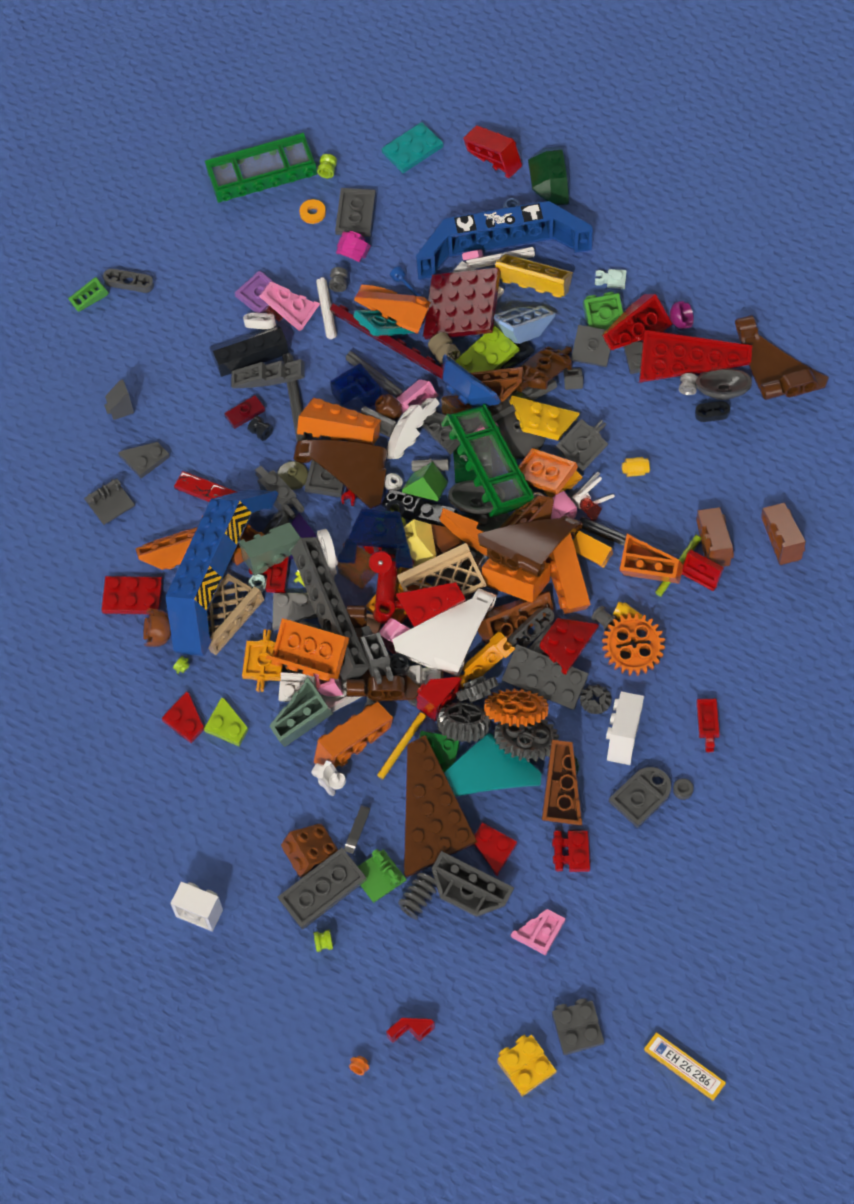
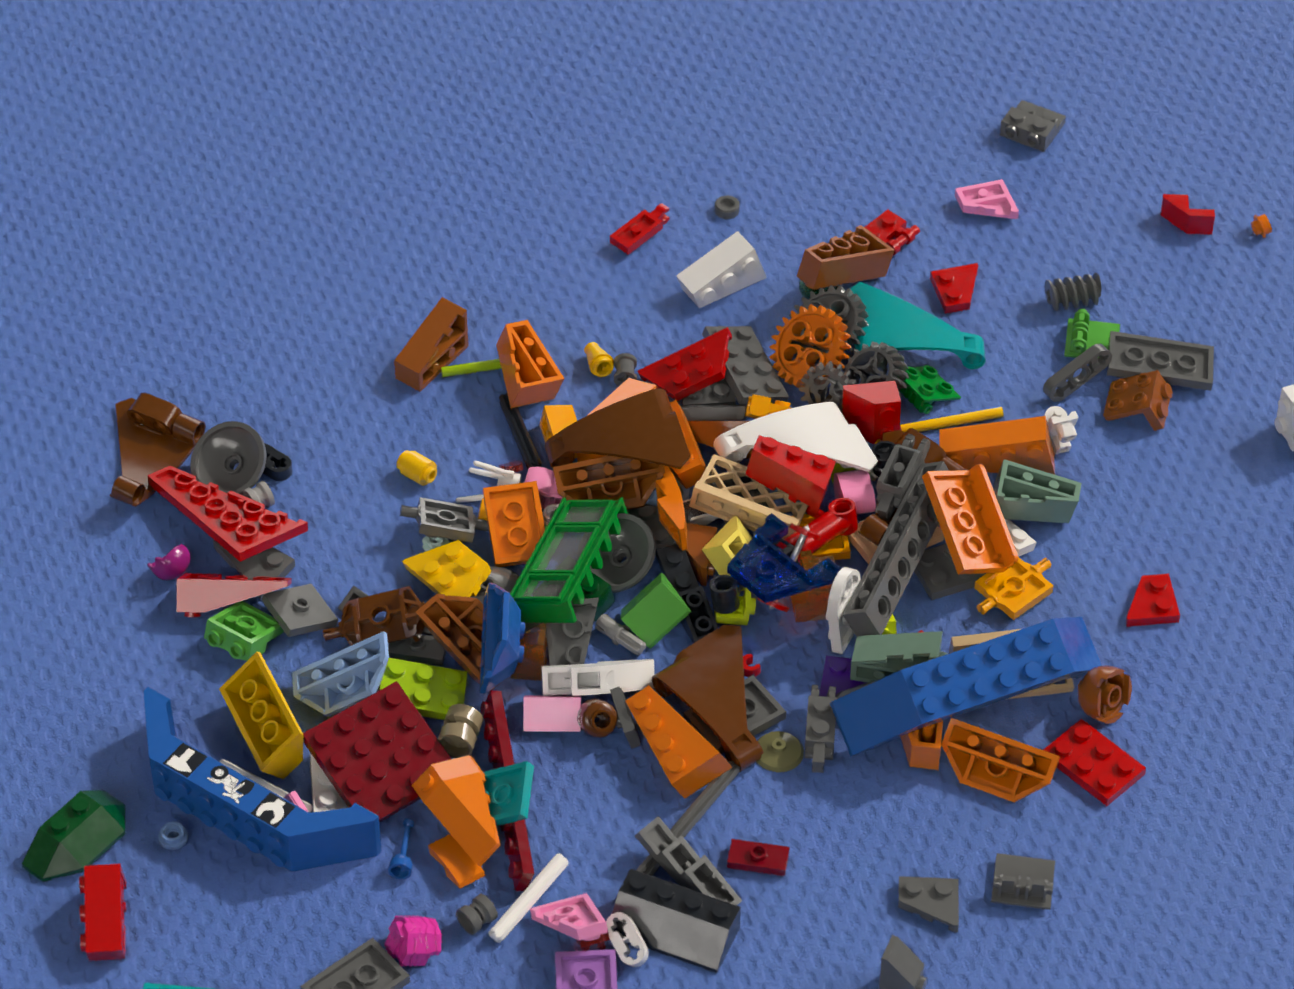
camera: 140 degrees left, 15 degrees down
(181, 665) = (1108, 648): lime plate -> none
(200, 487) = (892, 799): red tile -> none
(226, 724) = (1113, 565): lime wing -> none
(259, 427) = (763, 816): black wheel -> none
(291, 607) = (930, 614): light grey wing -> none
(323, 940) = (1201, 325): lime wheel -> none
(356, 383) = (604, 769): clear blue brick -> none
(381, 380) = (565, 778): dark grey axle -> none
(393, 486) = (677, 645): white plate -> none
(432, 811) = (990, 331): reddish brown wing -> none
(468, 886) = (1017, 254): dark grey wedge -> none
(525, 1064) = (1108, 133): yellow plate -> none
(591, 705) = (710, 315): dark grey gear -> none
(613, 278) = (177, 665): light aqua plate -> none
(636, 661) = (627, 327): orange gear -> none
(640, 796) = (771, 223): dark grey plate -> none
(684, 1066) = (970, 47): tile -> none
(702, 570) = (482, 330): red plate -> none
(783, 533) = (365, 301): dark orange wedge -> none

